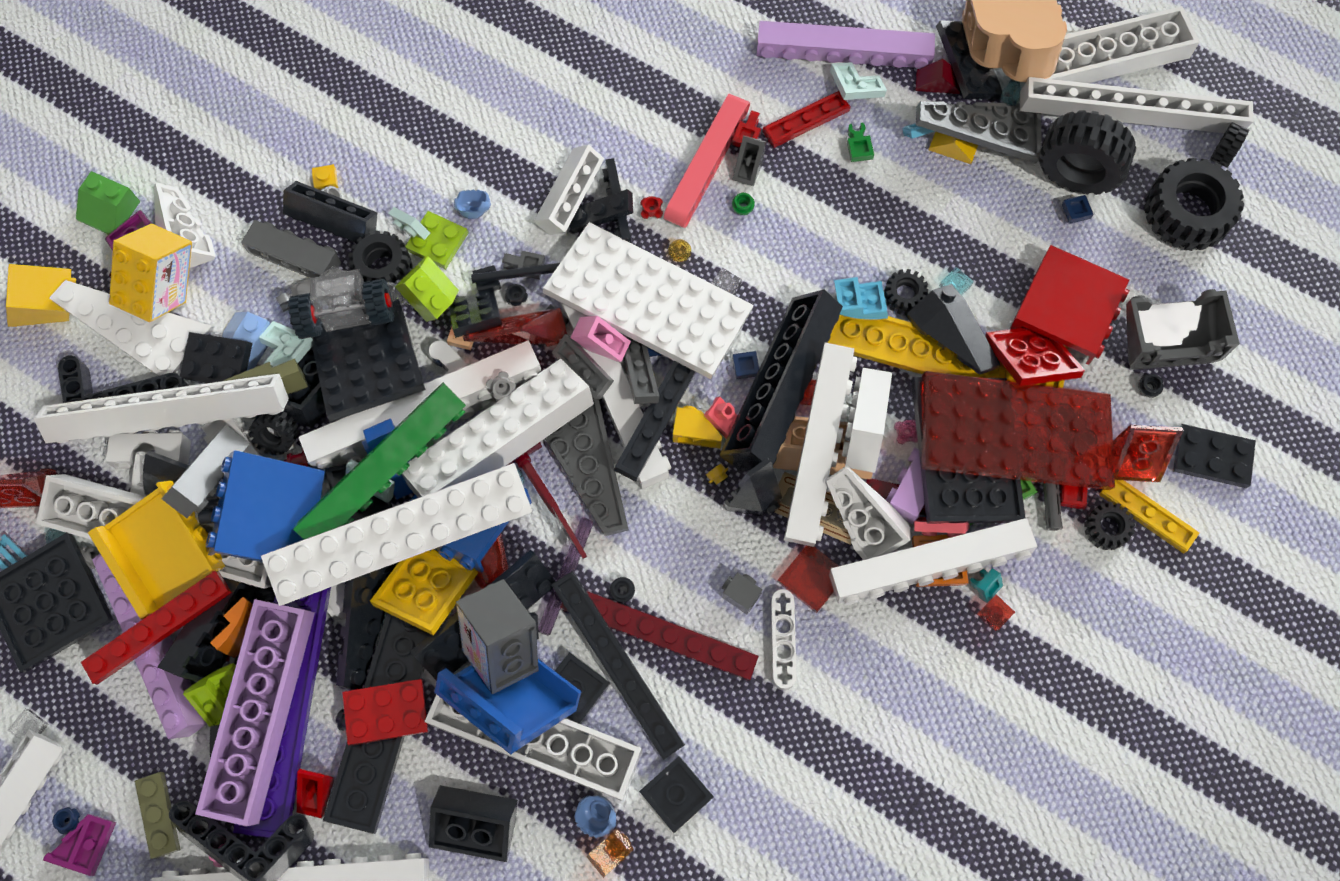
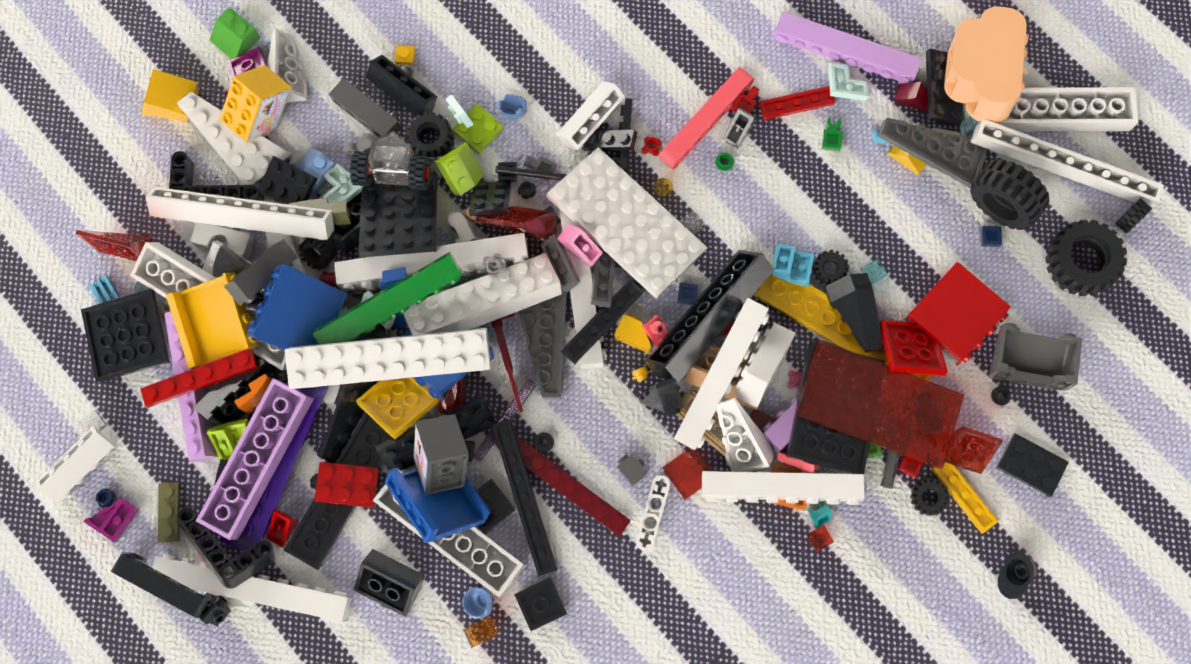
camera: 20 degrees right, 5 degrees up
(1244, 590) = (1016, 575): none -> black piece

